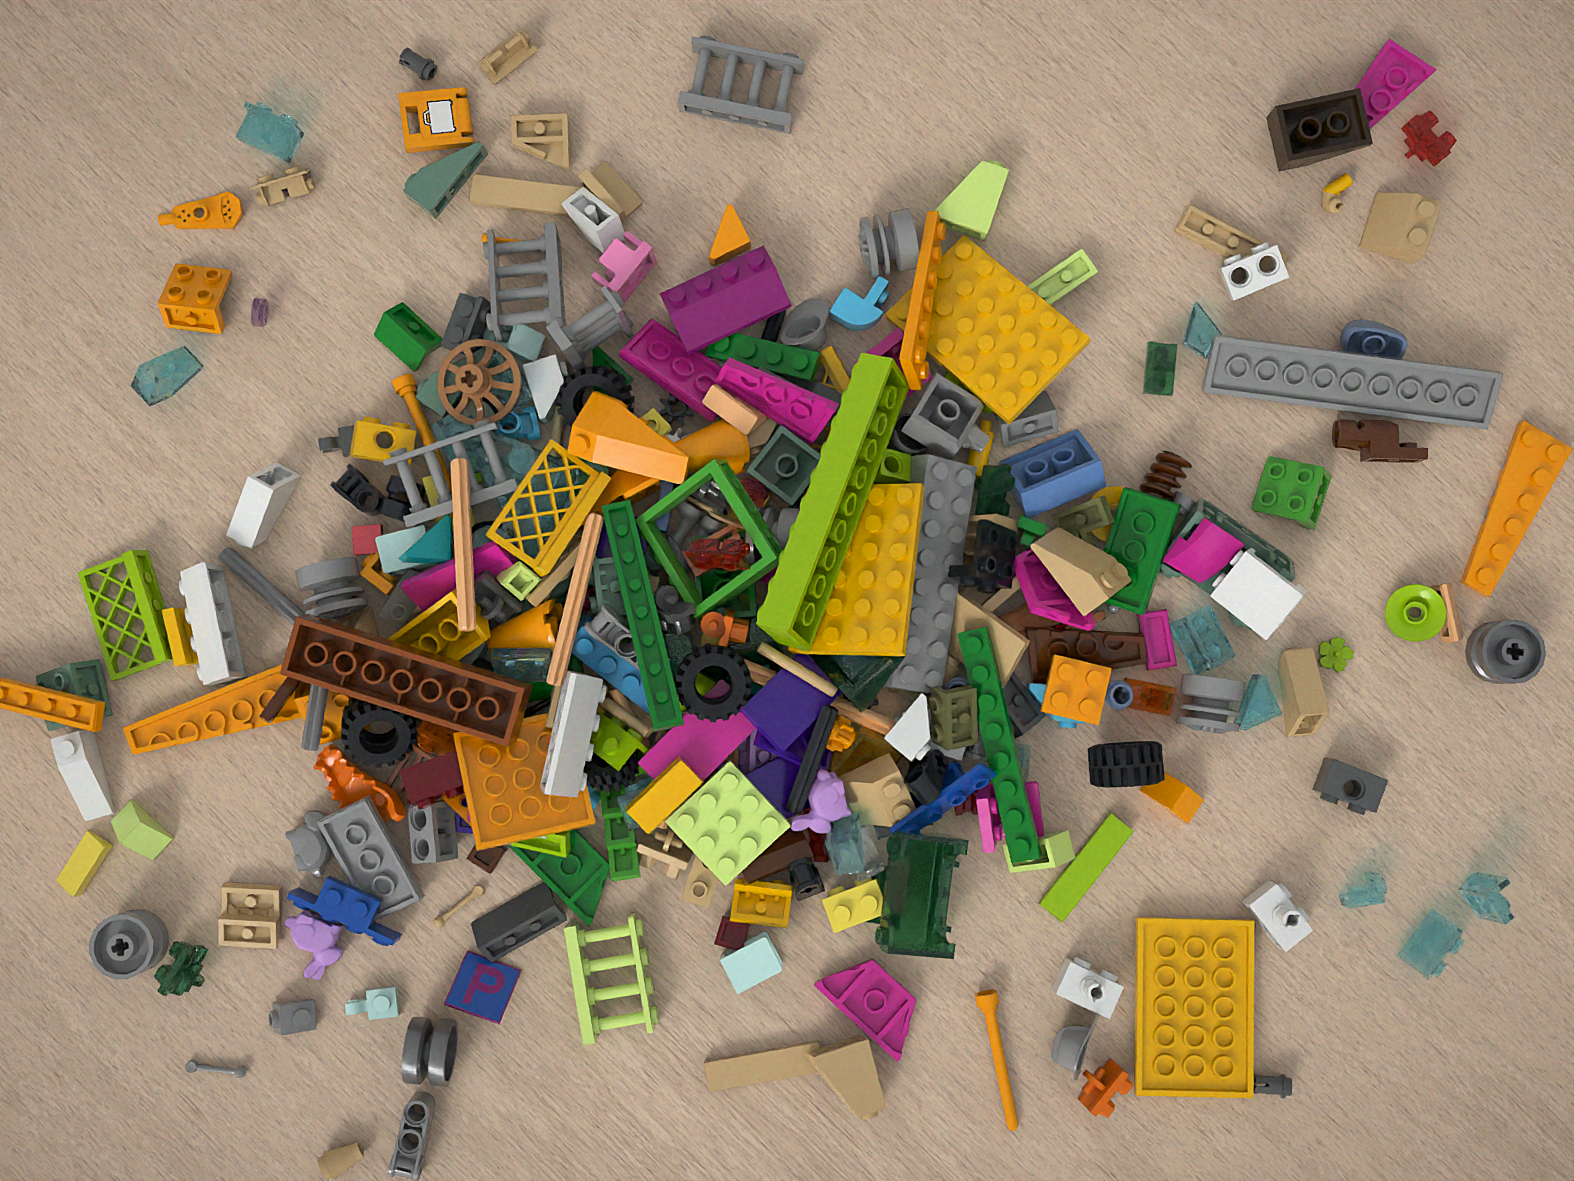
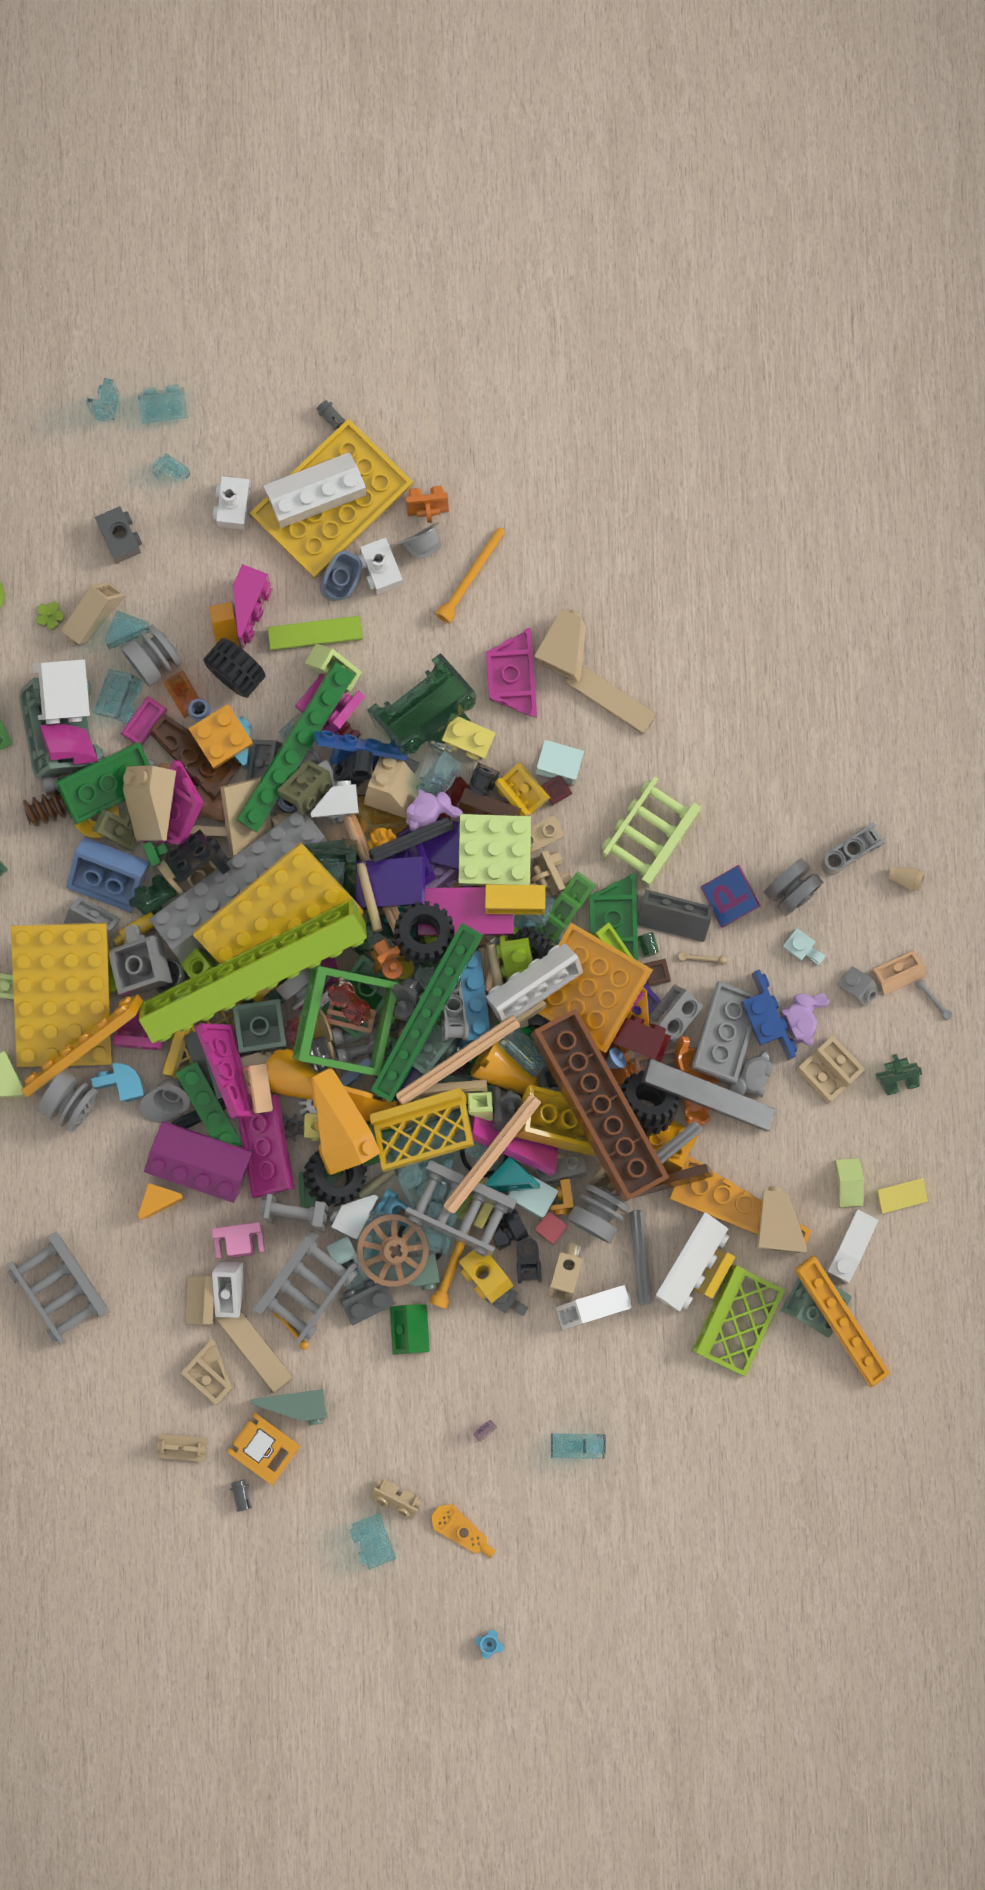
camera: 140 degrees left, 5 degrees down
(82, 142) = (482, 1643): none -> medium azure plate
(128, 943) = (929, 1118): light grey wheel -> none
(161, 731) = (779, 1224): none -> tan slope
(194, 298) = (515, 1478): light orange bracket -> none
(270, 1064) = (899, 972): none -> light nougat slope
(307, 499) = (564, 1280): none -> tan torso
(330, 785) = (708, 1095): none -> tile
(442, 739) = (615, 1059): none -> light blue piece
(516, 872) = (648, 944): none -> clear green hinge
(1114, 942) = (340, 576): none -> sand blue piece
(1180, 847) = (250, 592): none -> dark pink slope
(1216, 1001) = (315, 490): none -> white slope

